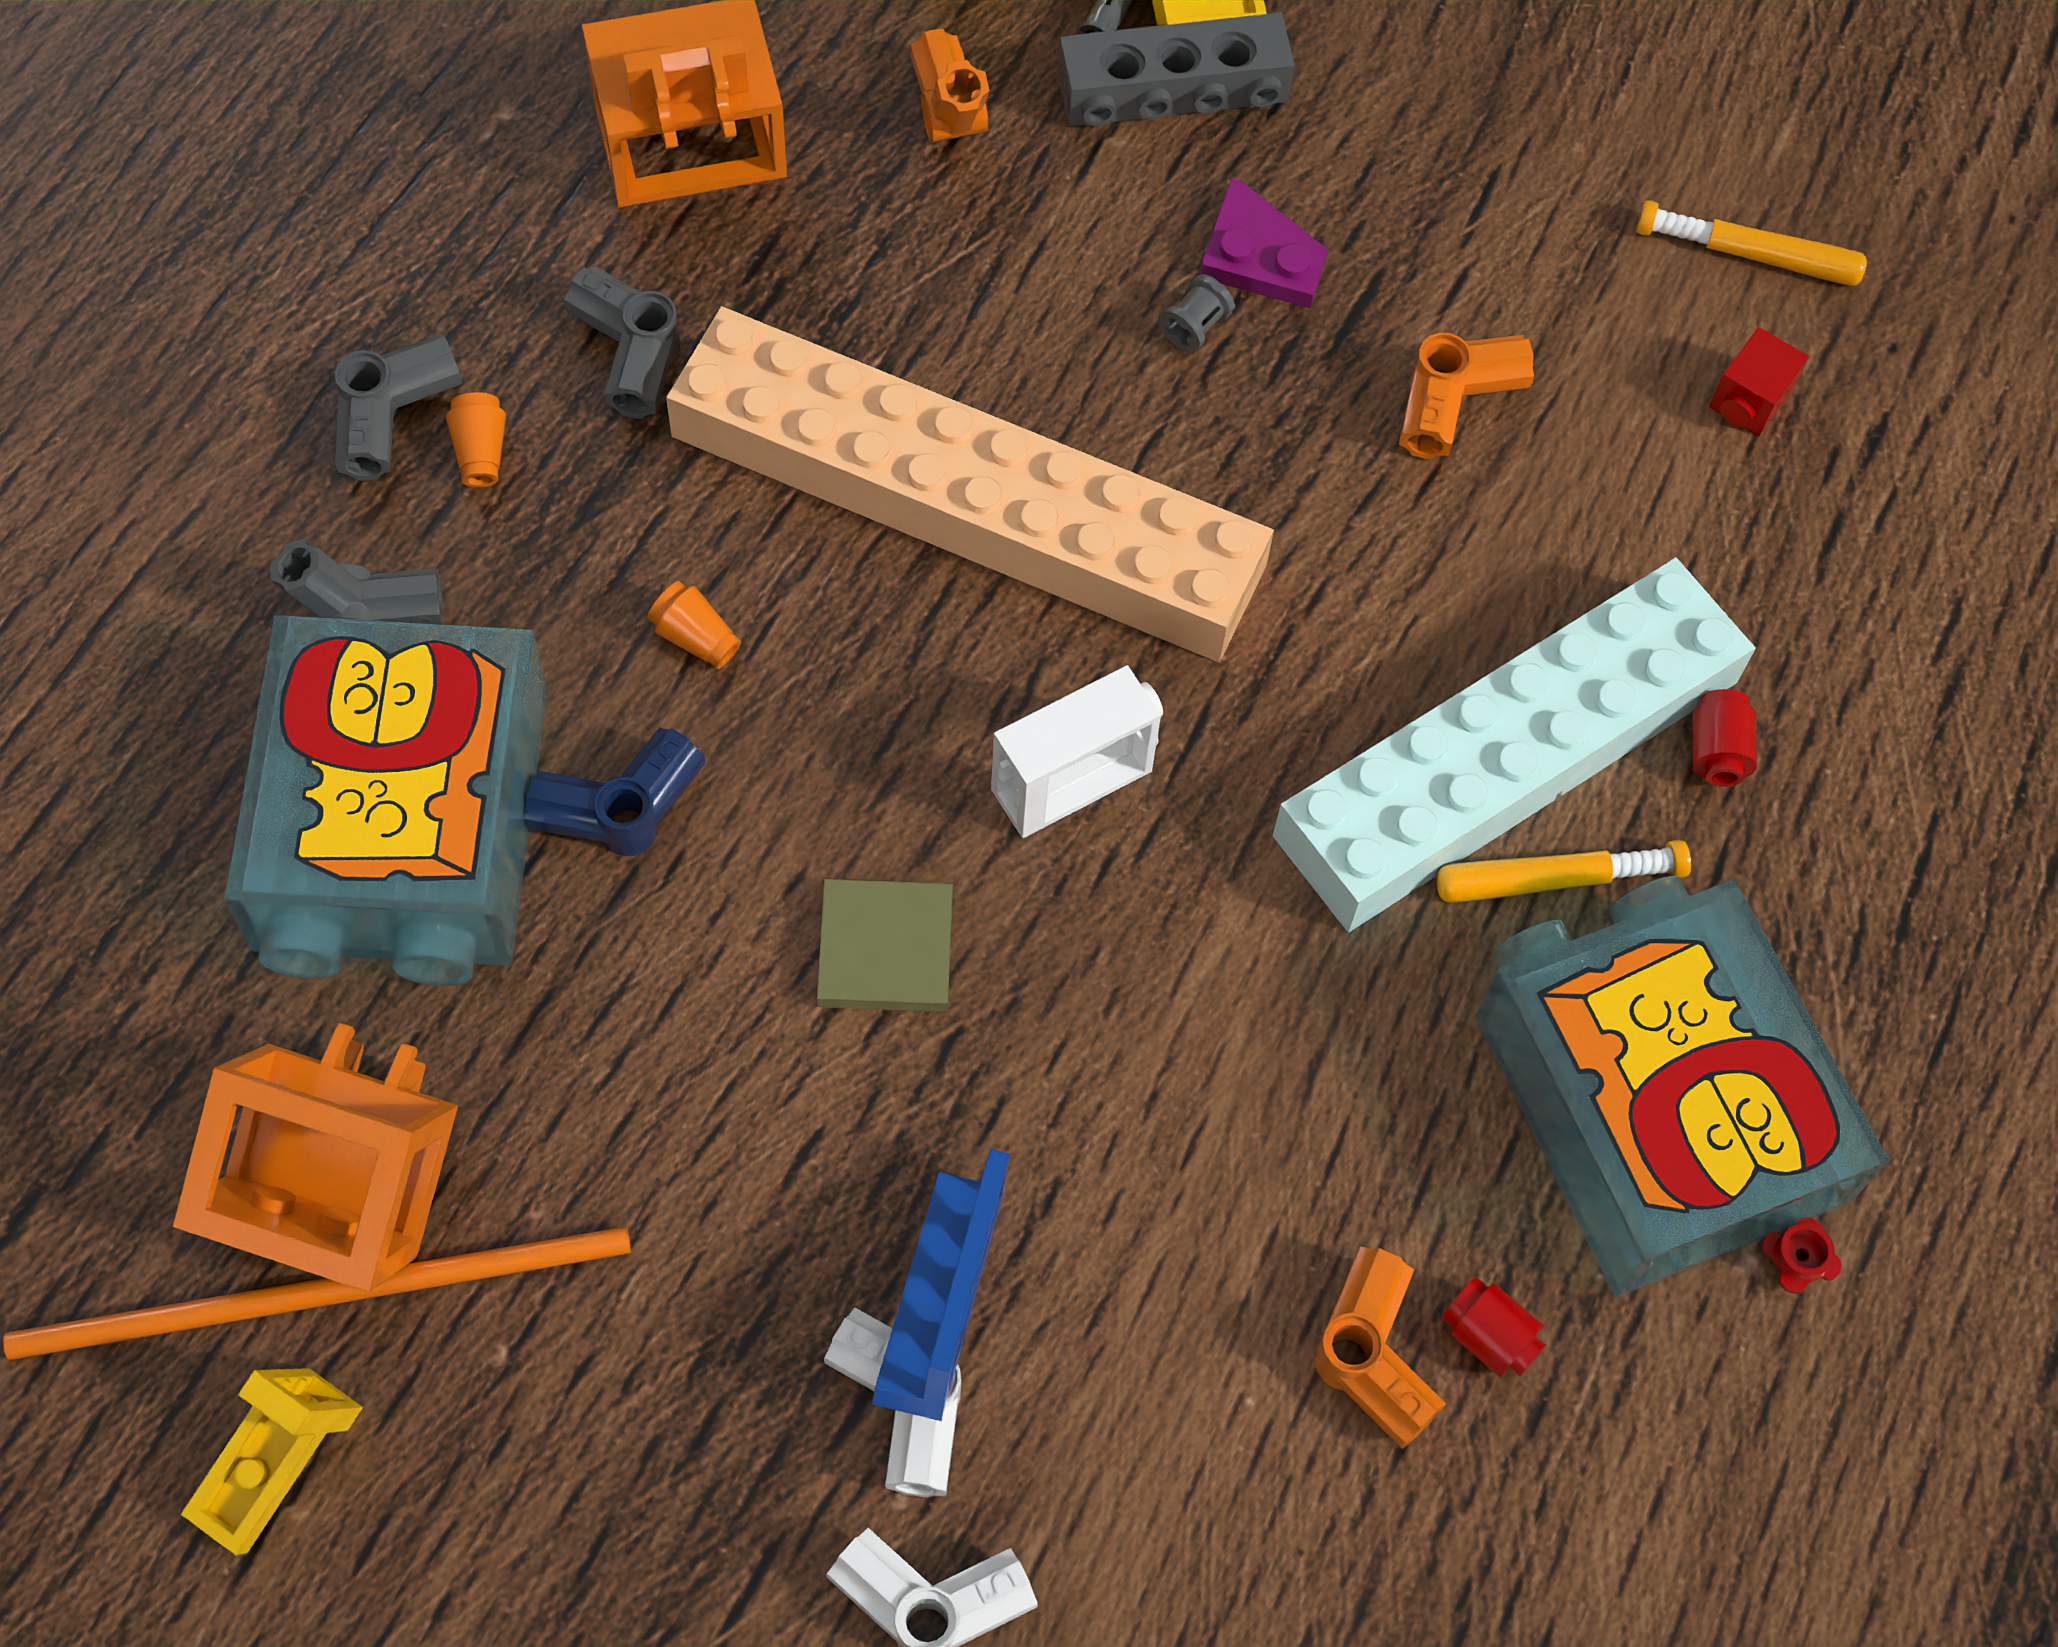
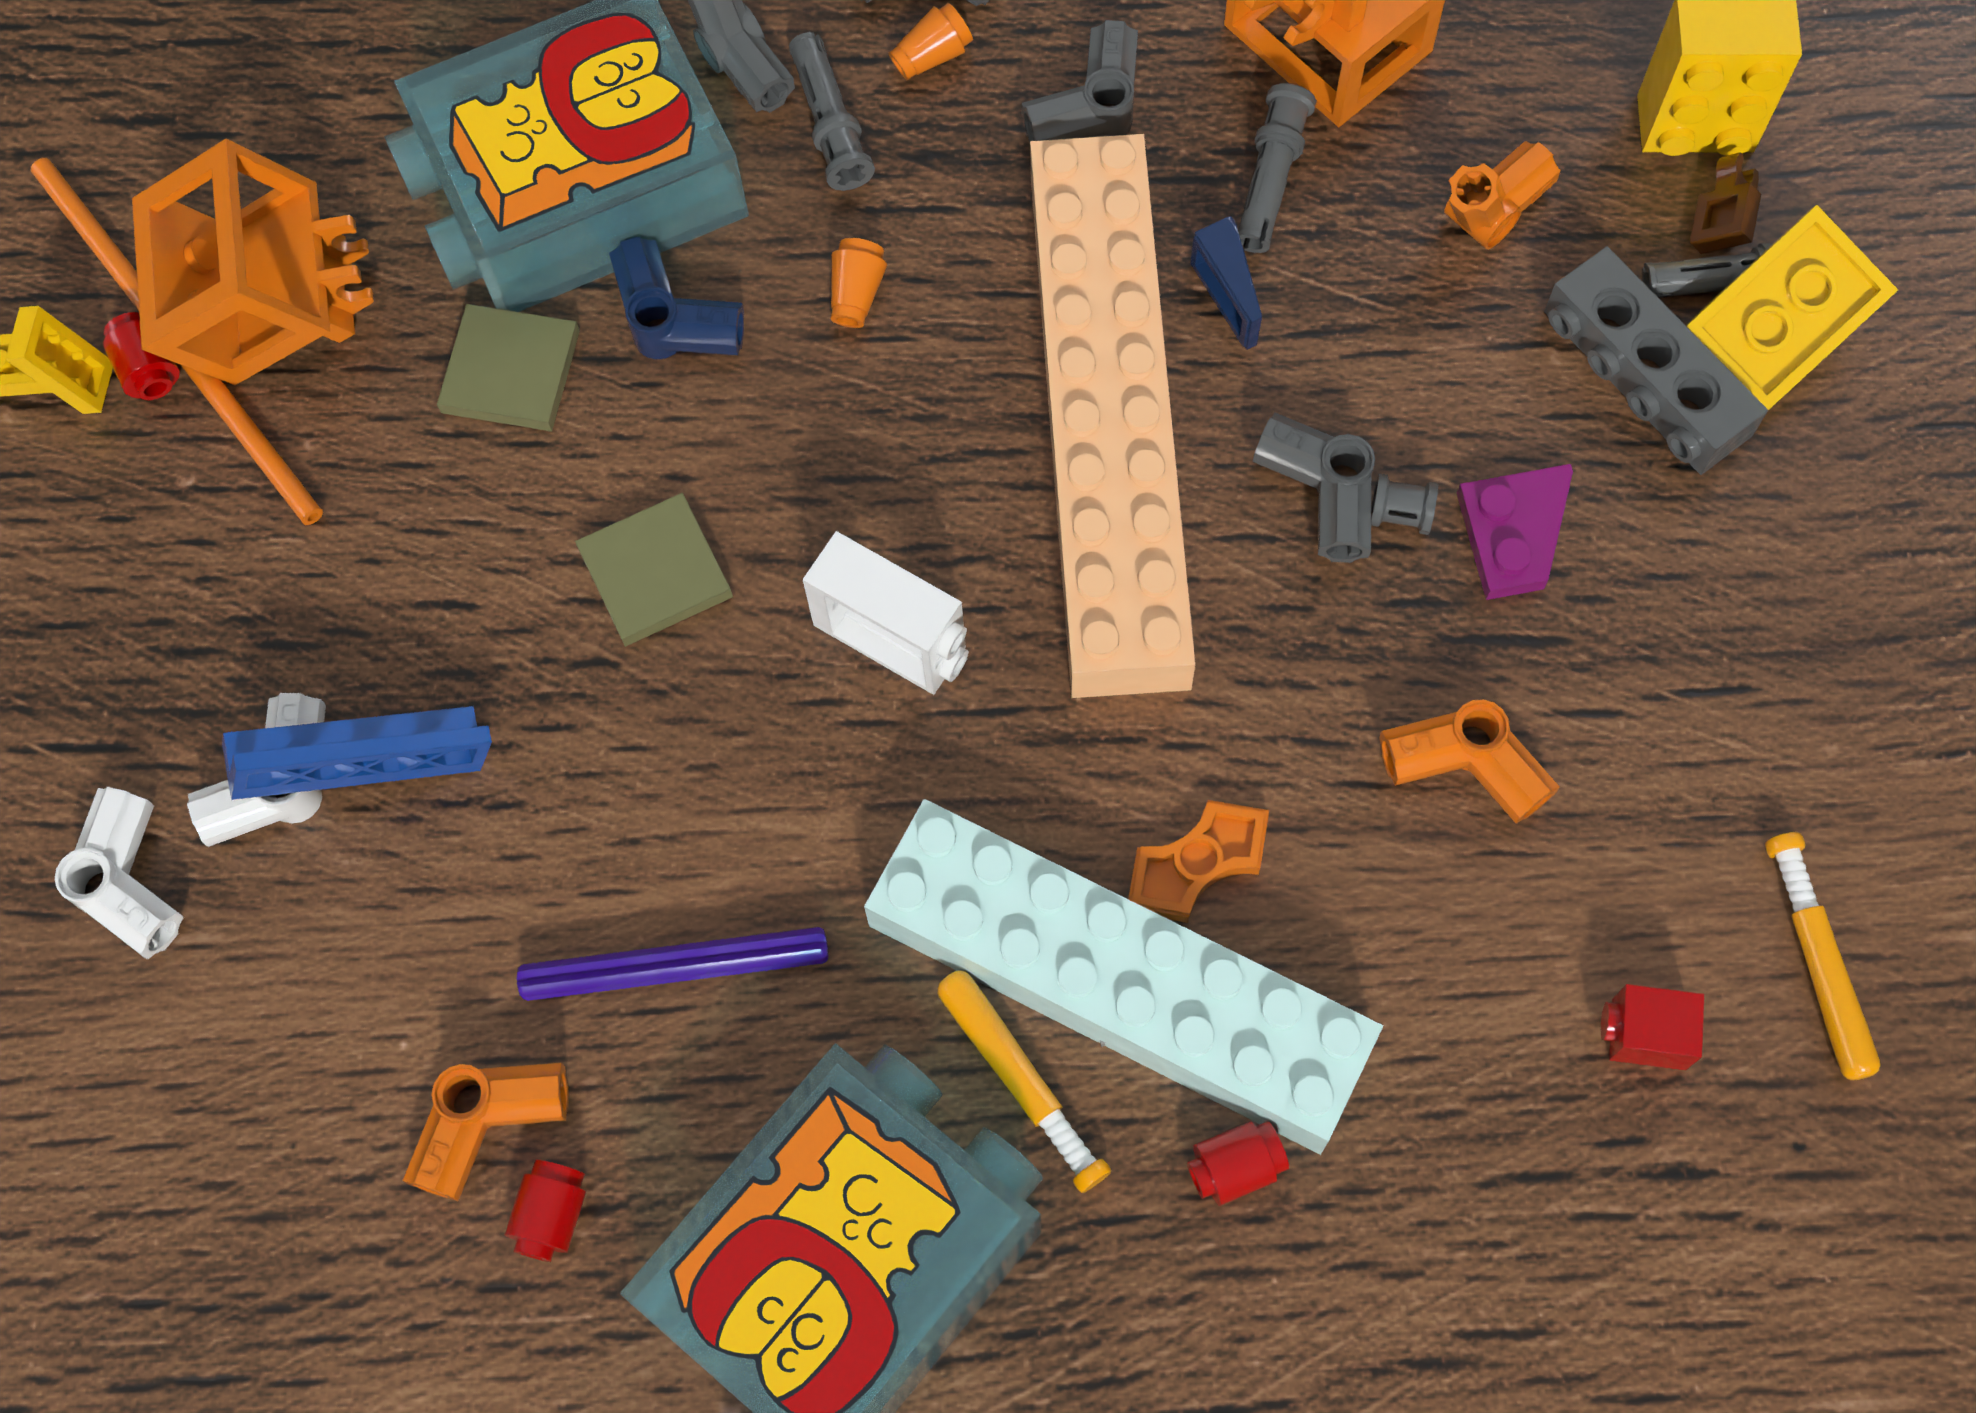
camera: 70 degrees right, 5 degrees up
(334, 1329) = (138, 371): none -> red brick
(517, 563) = (835, 130): none -> dark grey pin
(578, 977) = (508, 367): none -> olive tile
(785, 224) = (1278, 145): none -> dark grey pin
(899, 327) = (1225, 274): none -> dark blue slope
(1164, 353) = (1342, 500): none -> dark grey piece
(1301, 1115) = (672, 963): none -> dark purple axle
(1427, 614) = (1221, 845): none -> orange tile

